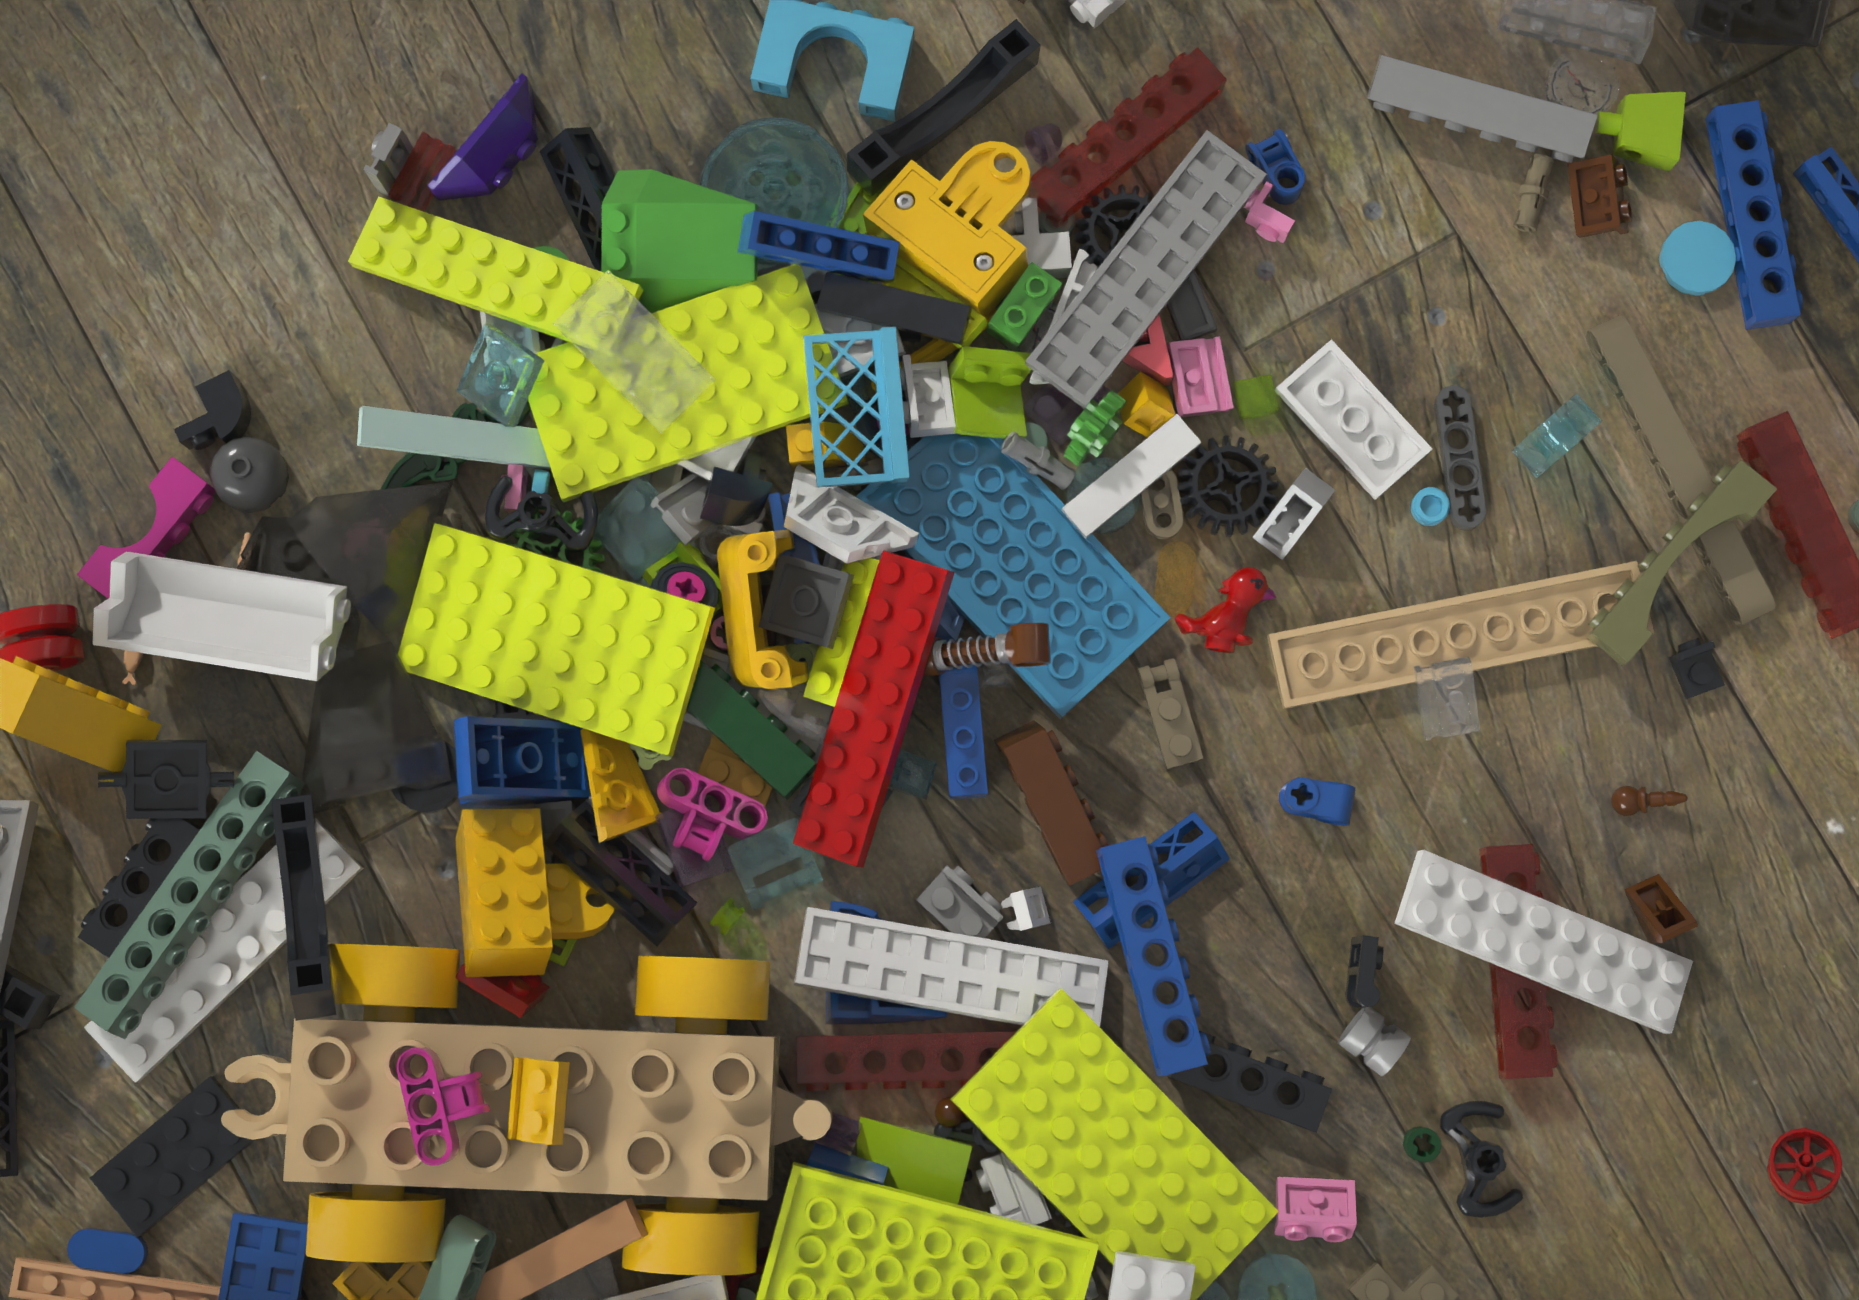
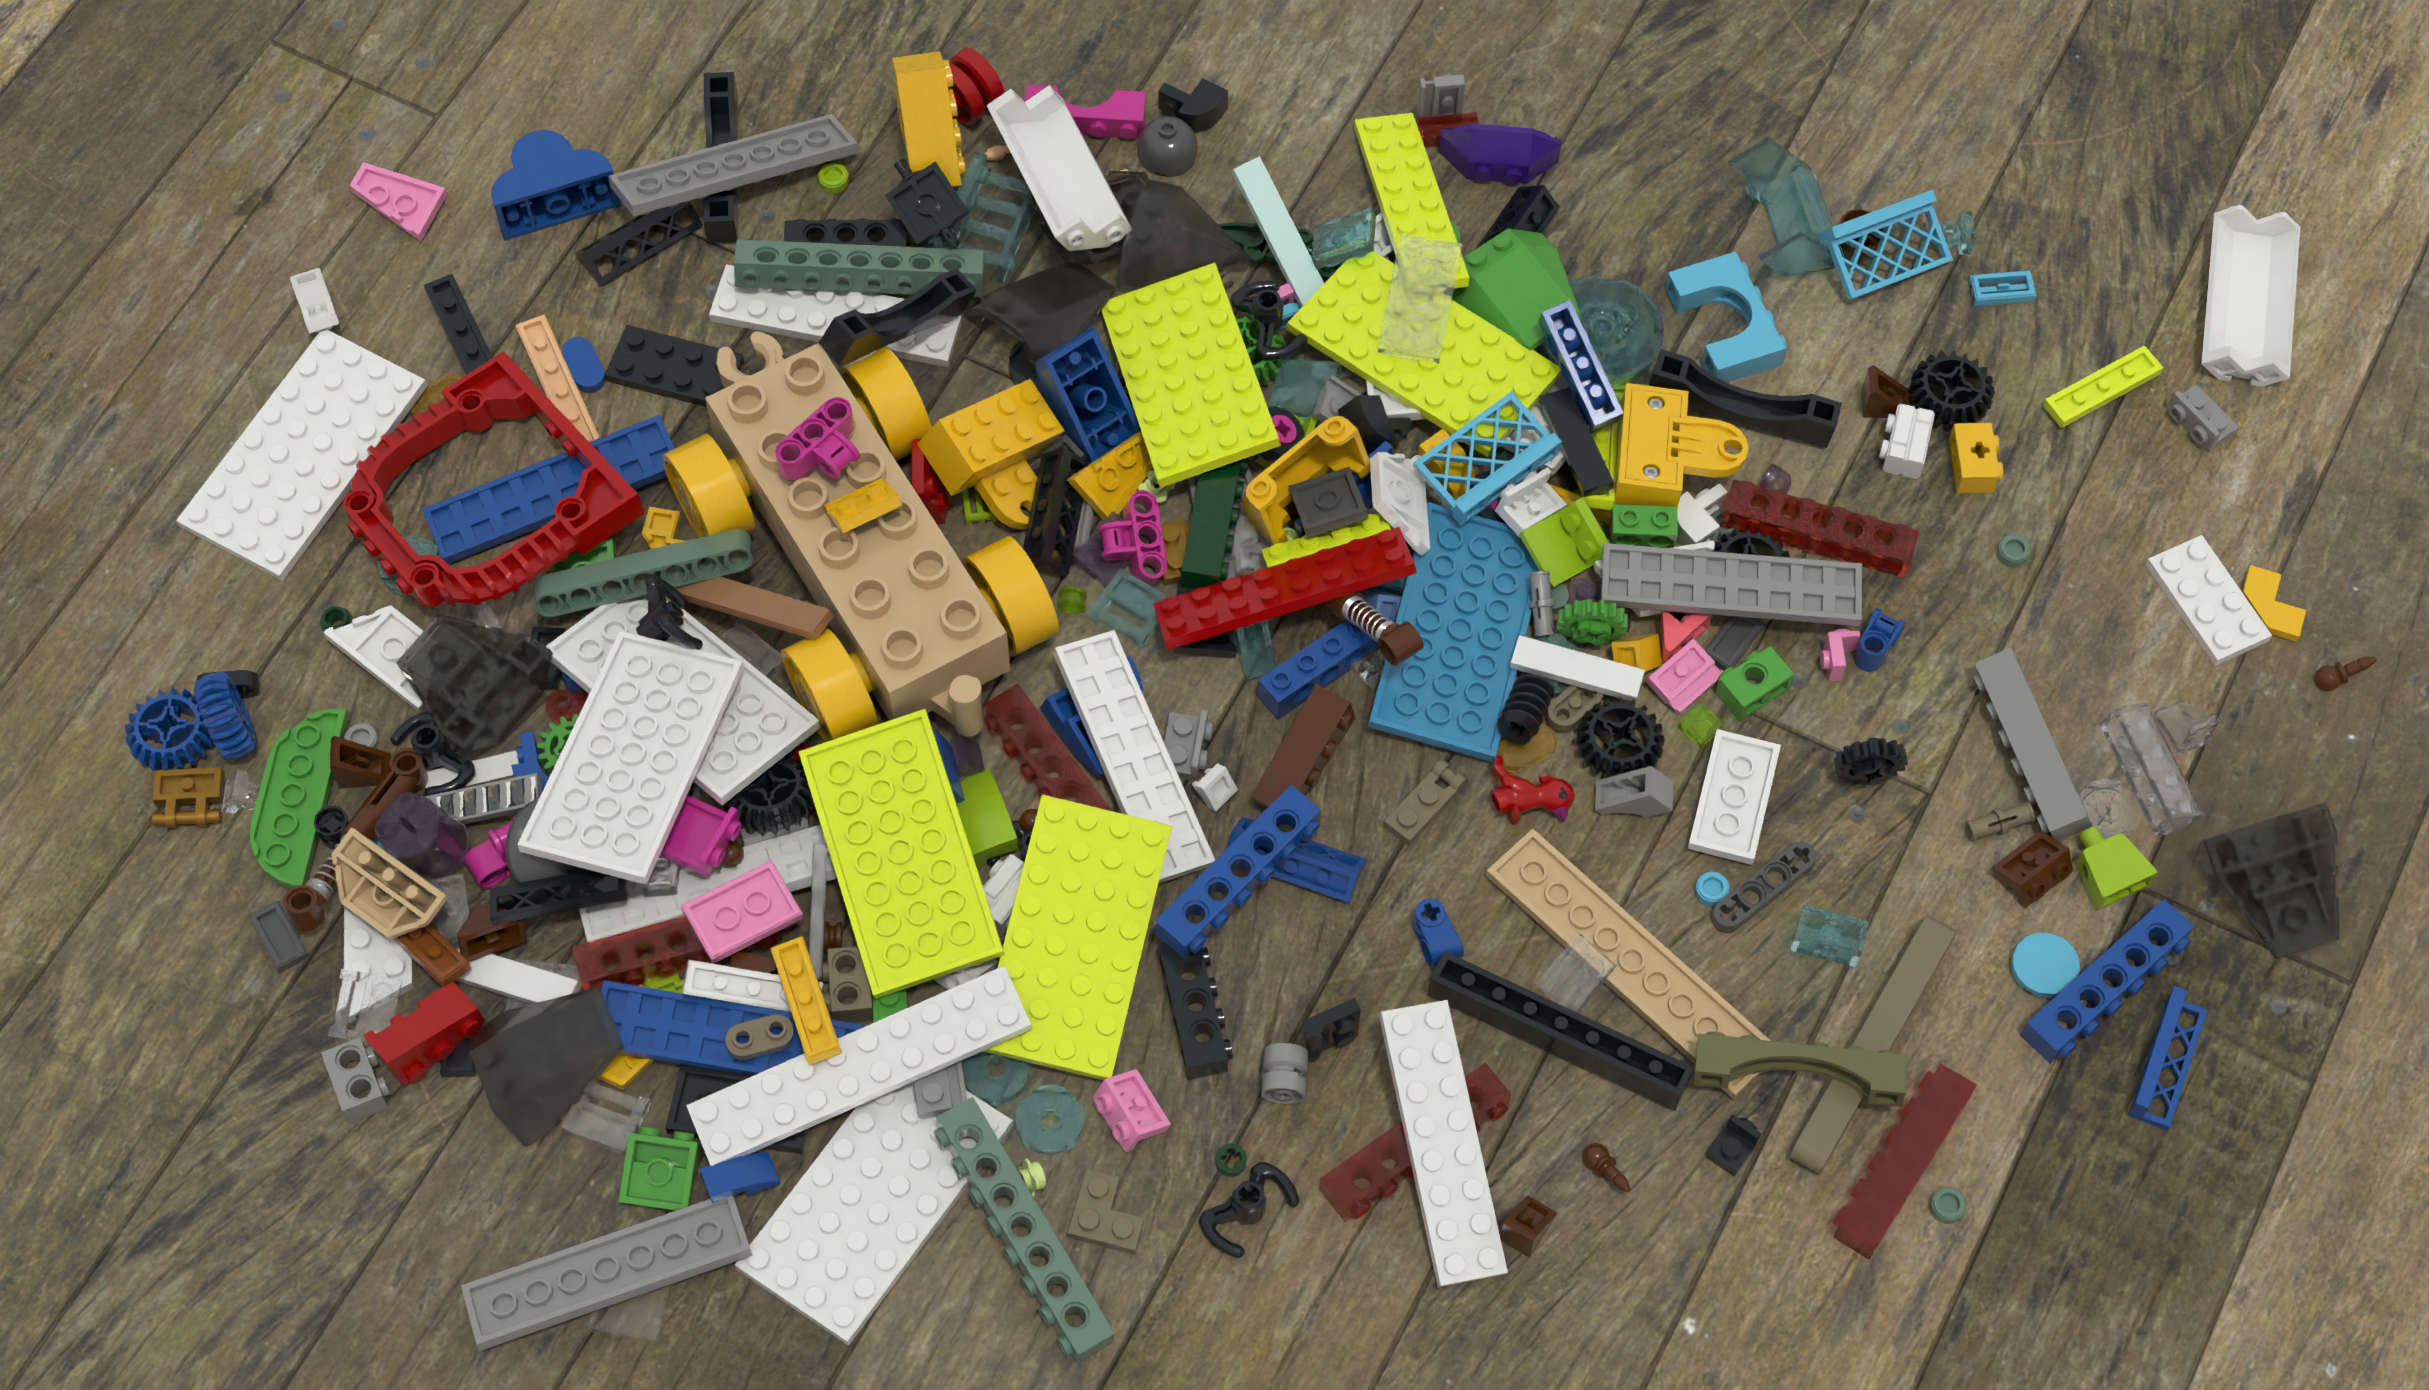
camera: 55 degrees right, 20 degrees down
(48, 846) = (833, 178): none -> lime tile
(175, 719) = (969, 192): none -> clear light blue fence
(1140, 556) = (1525, 708): none -> black piece
(1254, 295) = (1746, 698): none -> bright green brick
(1410, 271) = (1870, 761): none -> black gear
(1494, 753) = (1560, 1030): none -> black brick

